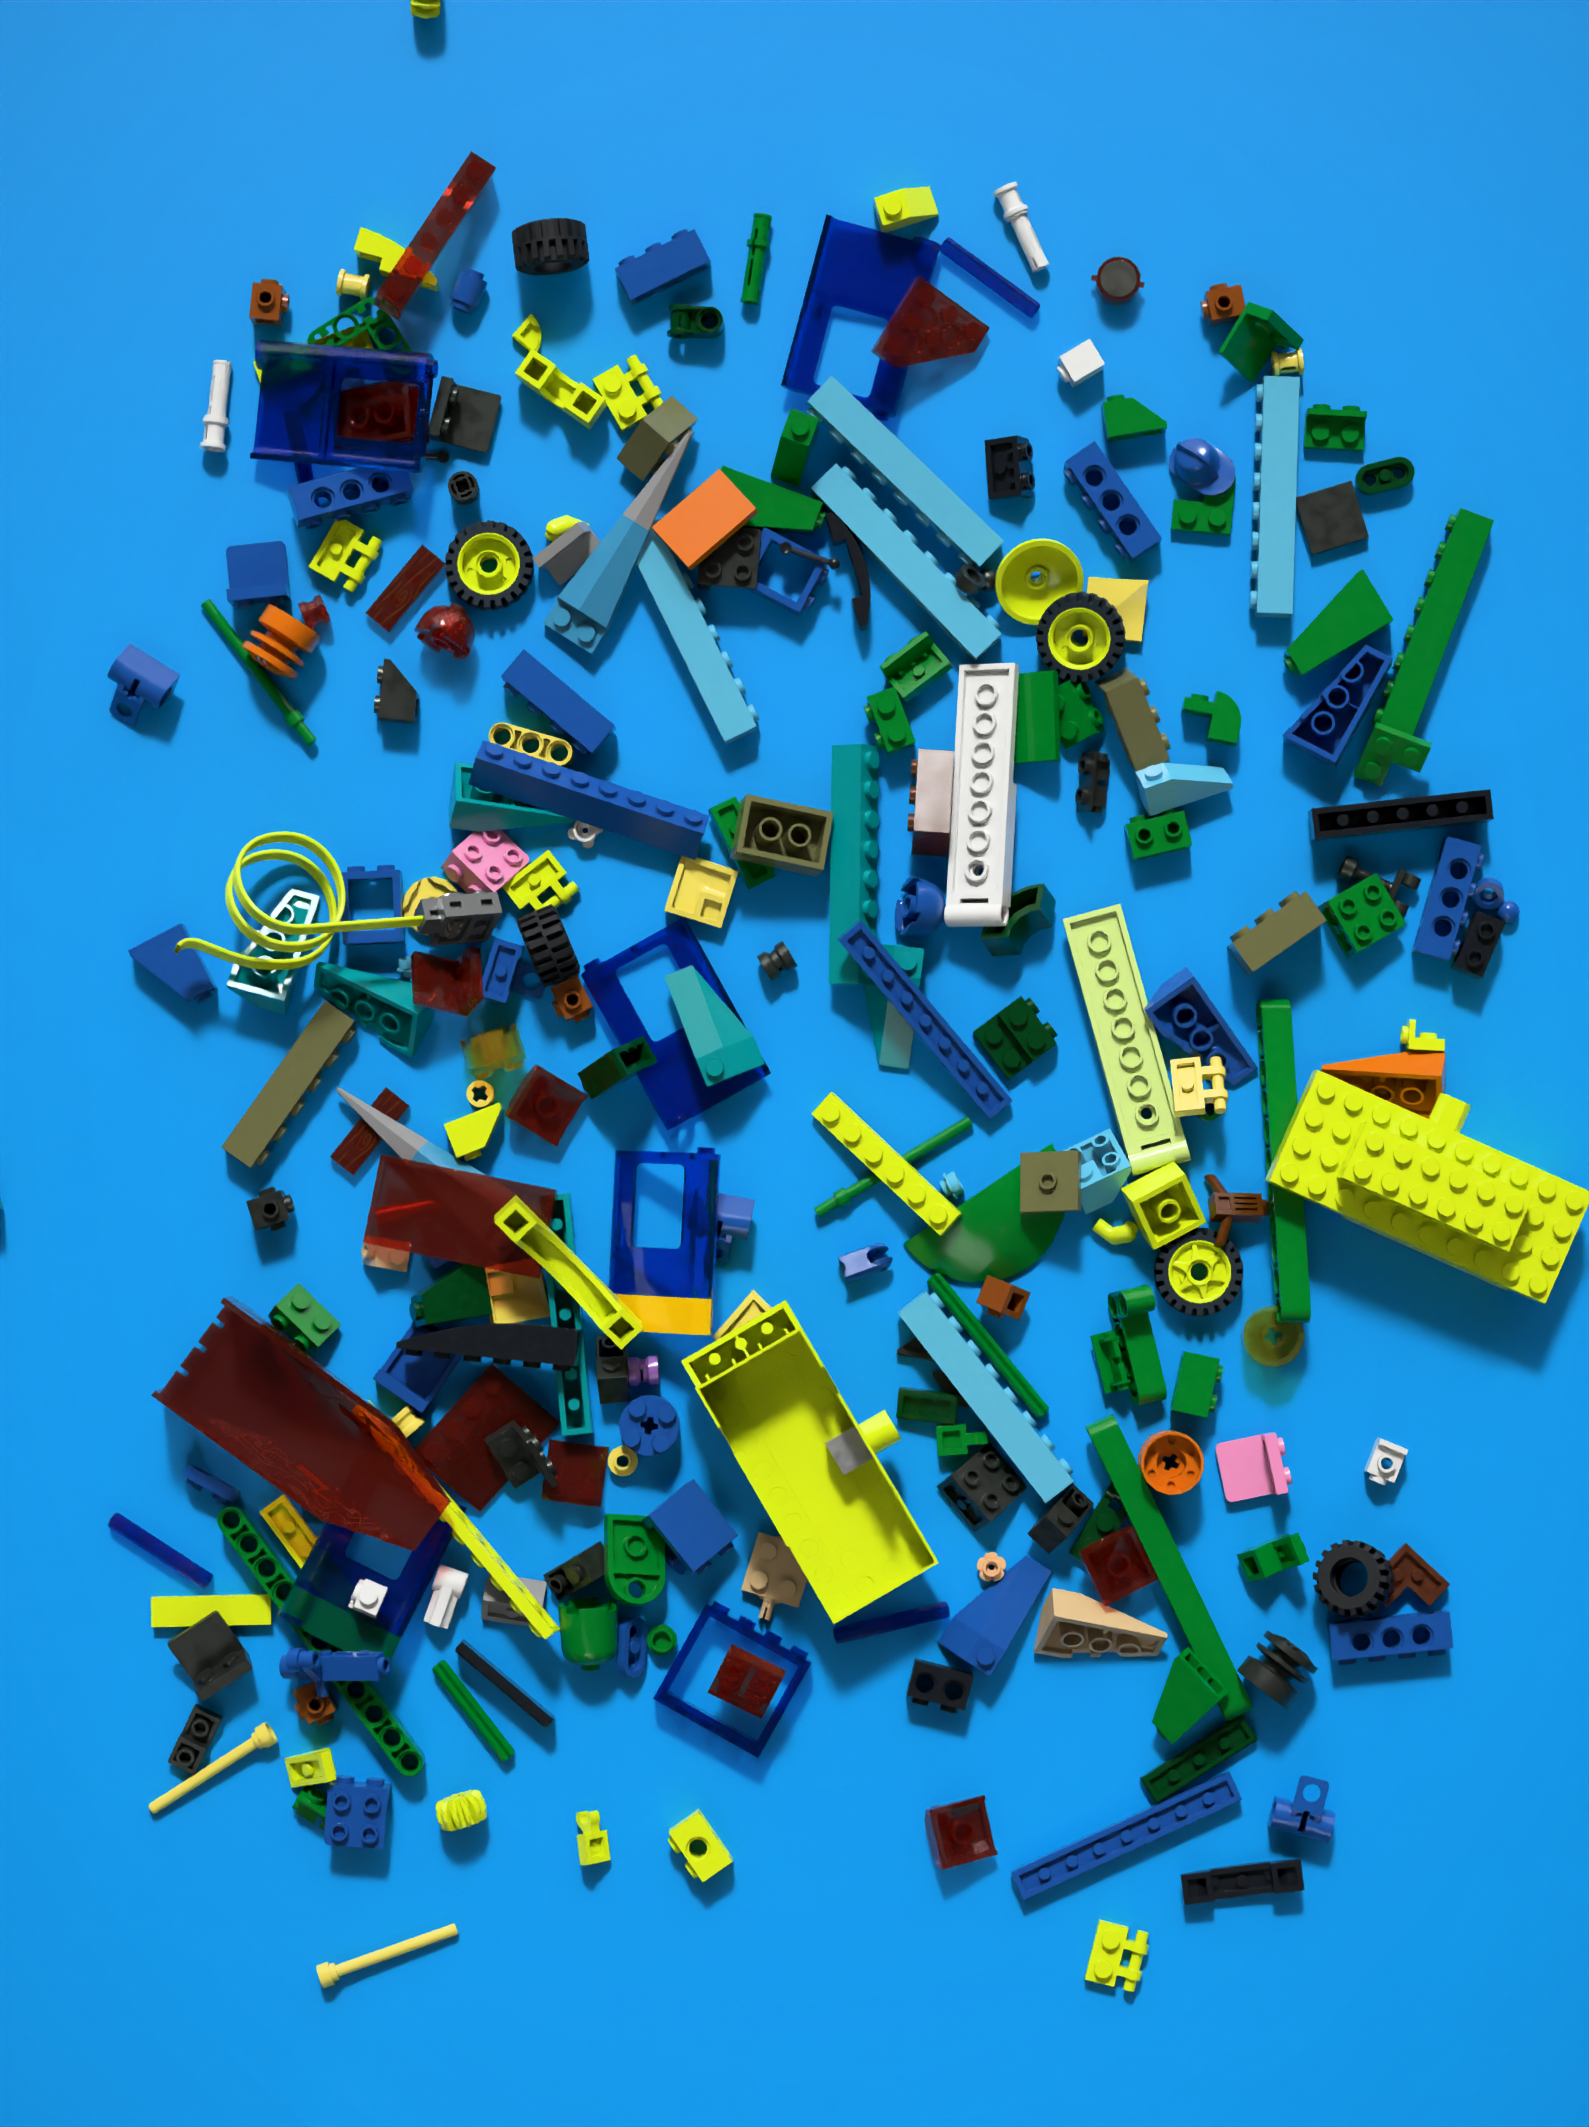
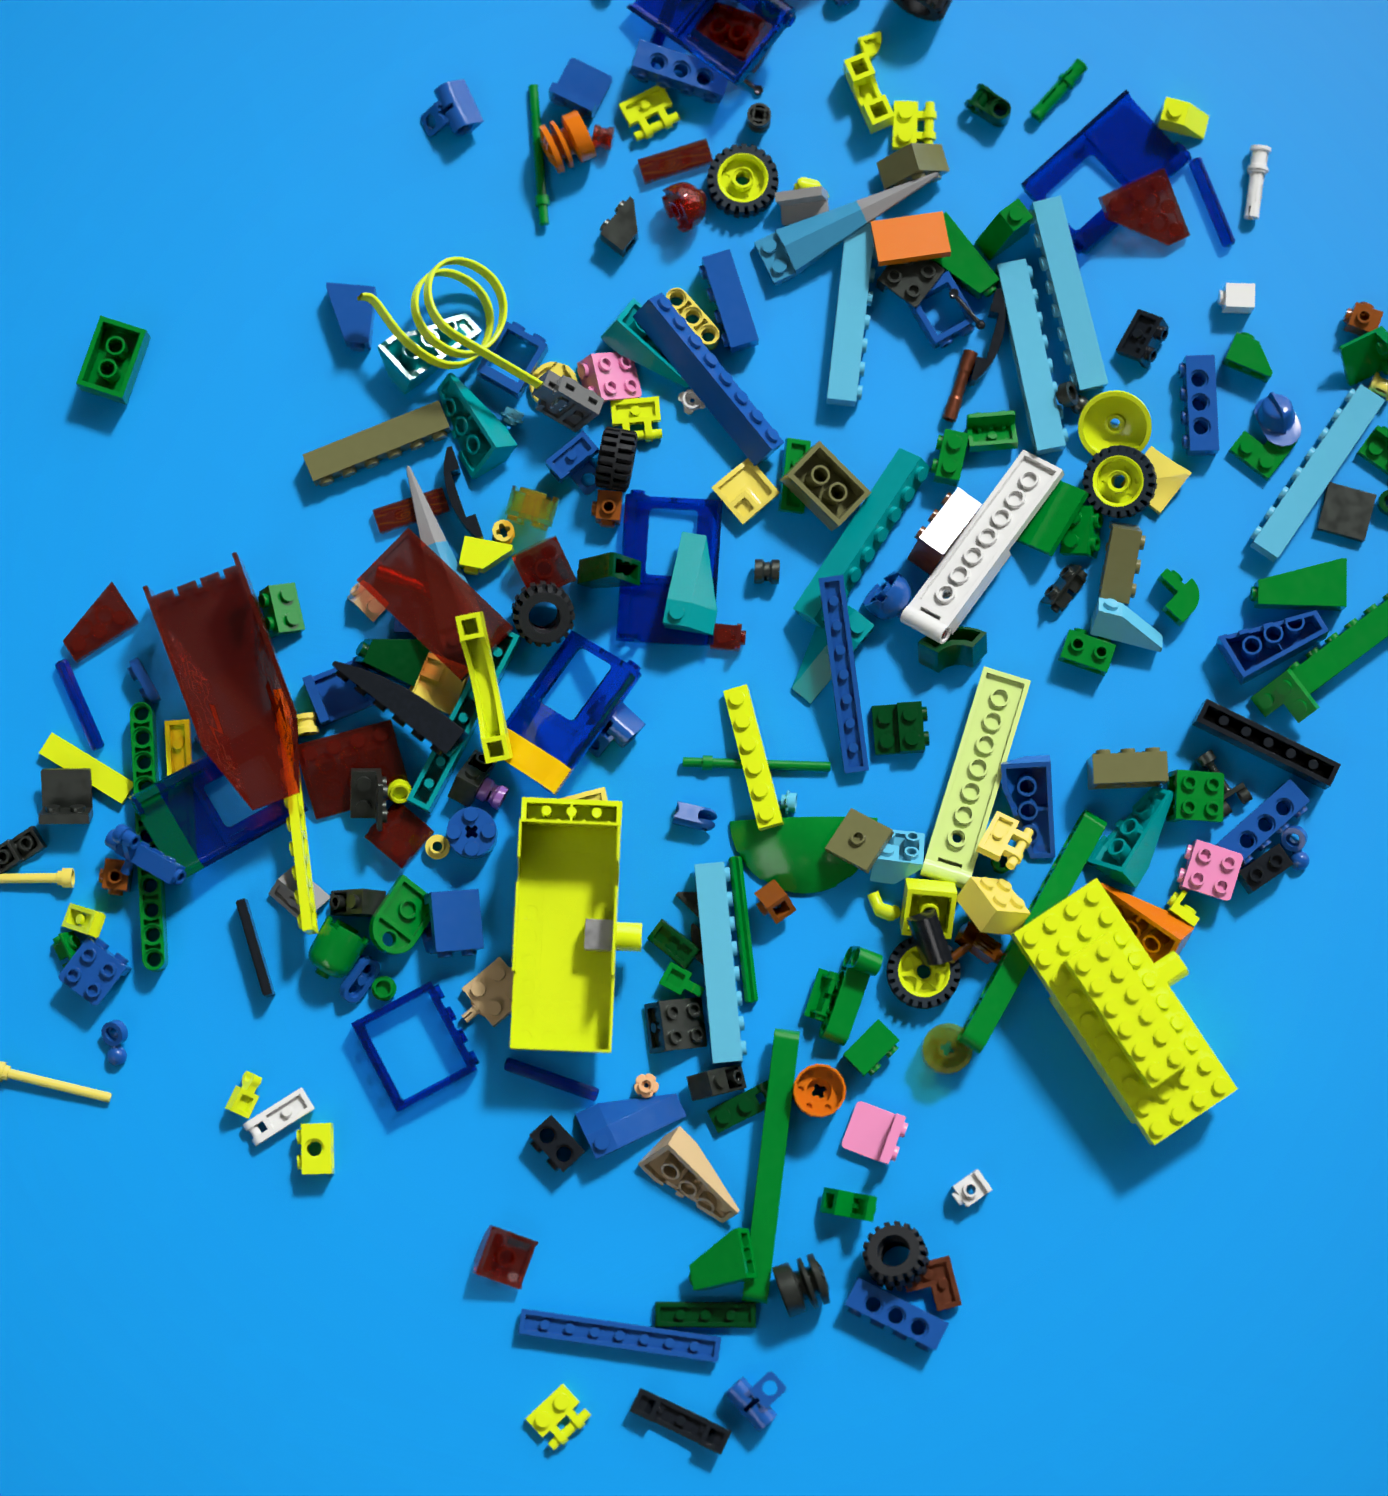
camera: 25 degrees right, 5 degrees down
(127, 1453) = (100, 624): none -> clear red wing
(260, 1209) = (303, 512): pearl dark grey brick -> none
(368, 1597) = (200, 825): white brick -> none
(384, 1060) = (452, 469): none -> black slope
(419, 1863) = (114, 1034): none -> blue plate
(447, 983) = (529, 441): clear red bracket -> none
(447, 1588) = (259, 857): white piece -> none
(461, 1810) = (167, 1015): neon yellow gear -> none
(463, 416) = (789, 69): pearl dark grey bracket -> none
(473, 1710) = (221, 953): green axle -> none
(547, 1429) = (399, 791): none -> neon yellow plate
(592, 1170) = (547, 633): none -> black tyre
(640, 1836) = (279, 1116): none -> white plate
(662, 266) = (991, 55): blue brick -> none
(746, 1681) = (423, 1051): clear red plate -> none
(781, 1054) = (728, 637): none -> clear red bracket
(856, 657) = (964, 371): none -> copper piece
(1117, 281) = (1299, 259): piece -> none
(1117, 1565) = (735, 1139): clear red slope -> none
(1185, 1237) = (929, 938): none -> black brick
(1228, 1162) = (993, 905): none -> light yellow brick
(1327, 1007) = (1130, 847): none -> teal wedge
(1424, 982) = (1210, 870): none -> bright pink bracket

